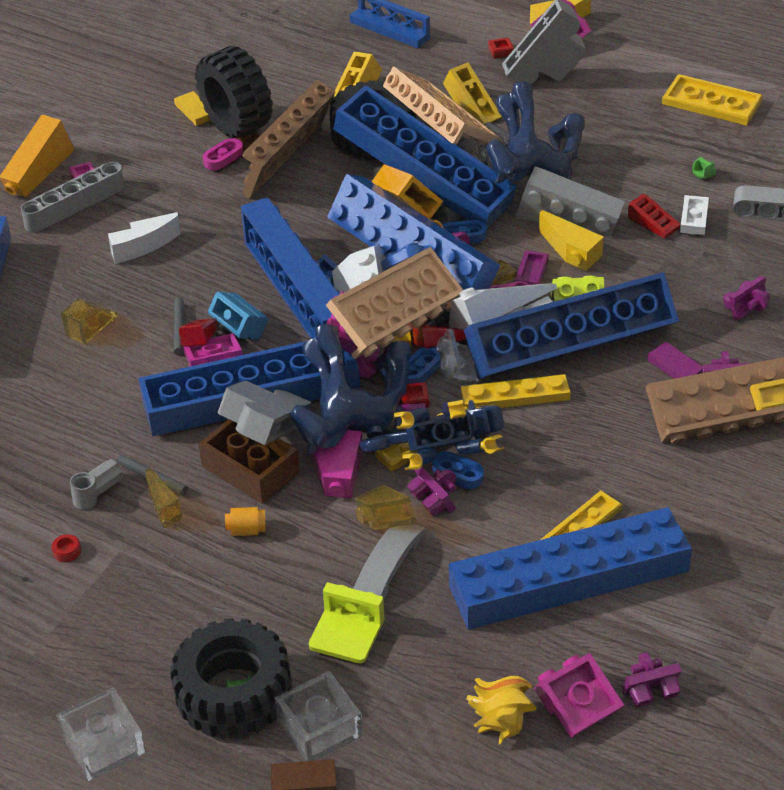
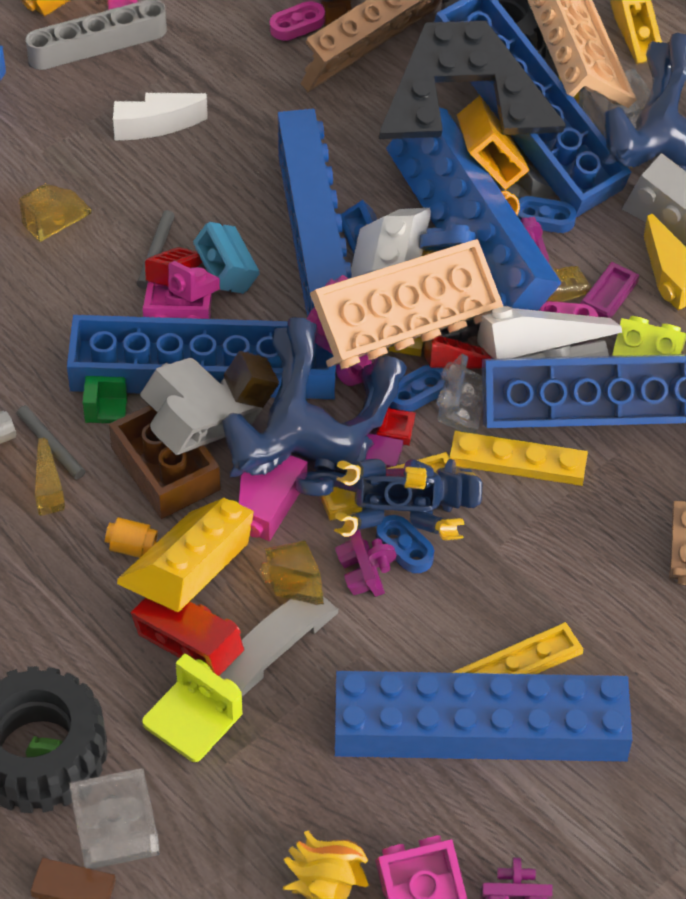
camera: 15 degrees right, 10 degrees up
(183, 433) = (104, 399): none -> green panel
(219, 334) = (192, 282): none -> dark pink bracket
(296, 384) = (251, 379): none -> dark brown panel
(299, 515) = (190, 554): none -> yellow slope
(310, 568) = (191, 632): none -> red brick
(372, 131) = (465, 54): none -> black wing

